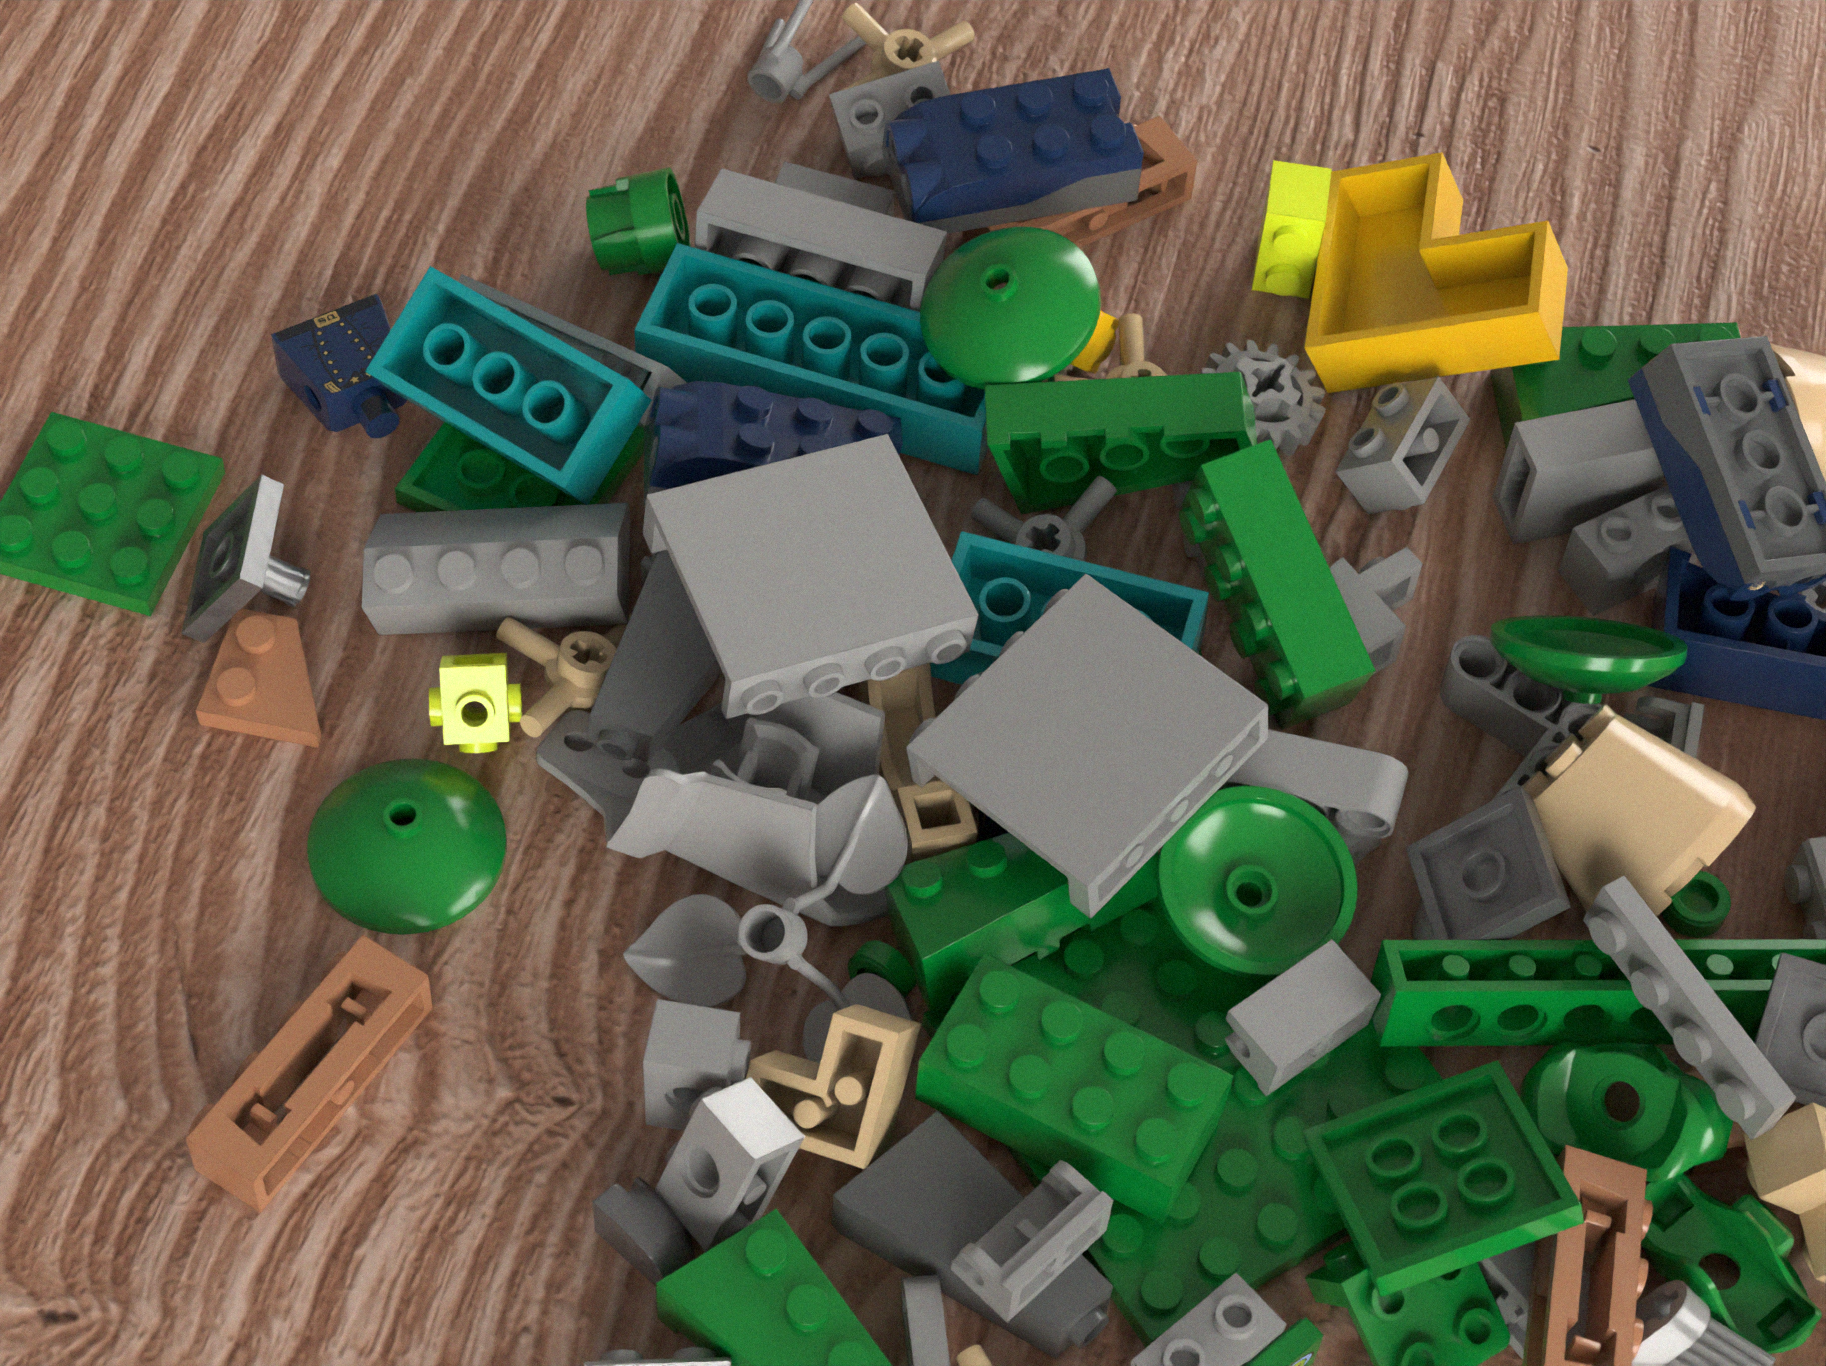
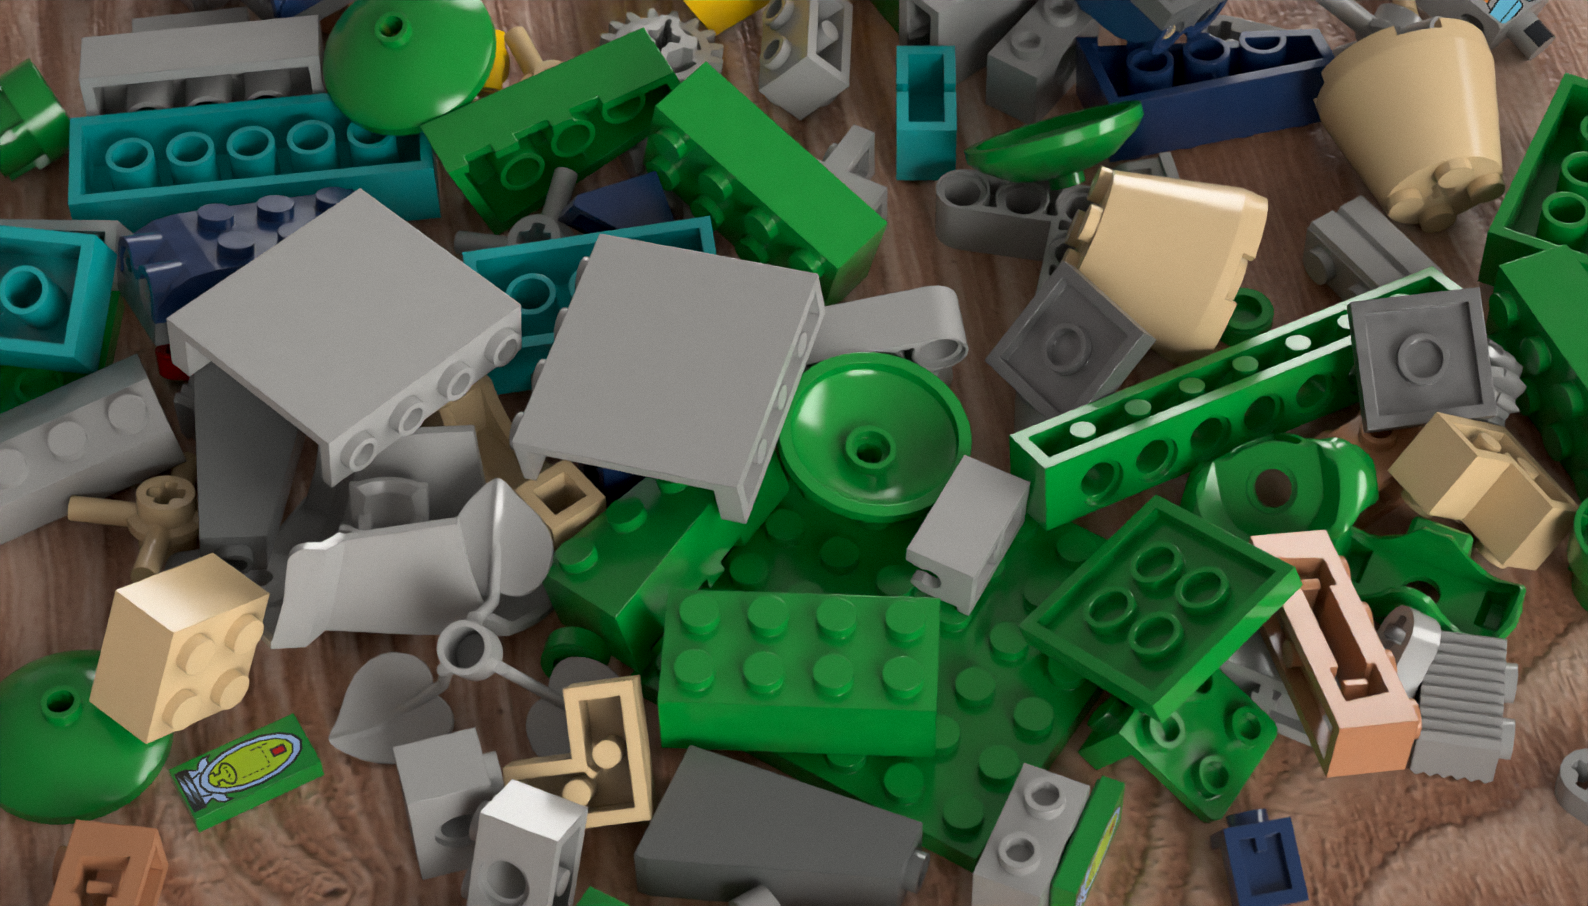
camera: 20 degrees left, 5 degrees down
(481, 680) = (57, 567): neon yellow brick -> none
(525, 811) = (179, 647): none -> tan brick
(539, 950) = (246, 772): none -> tile
(1034, 1241) = (836, 810): light grey hinge -> none
(1139, 545) = (619, 206): none -> dark blue slope
(1484, 561) = (925, 112): none -> teal piece
(1688, 1008) = (1296, 379): light grey plate -> none

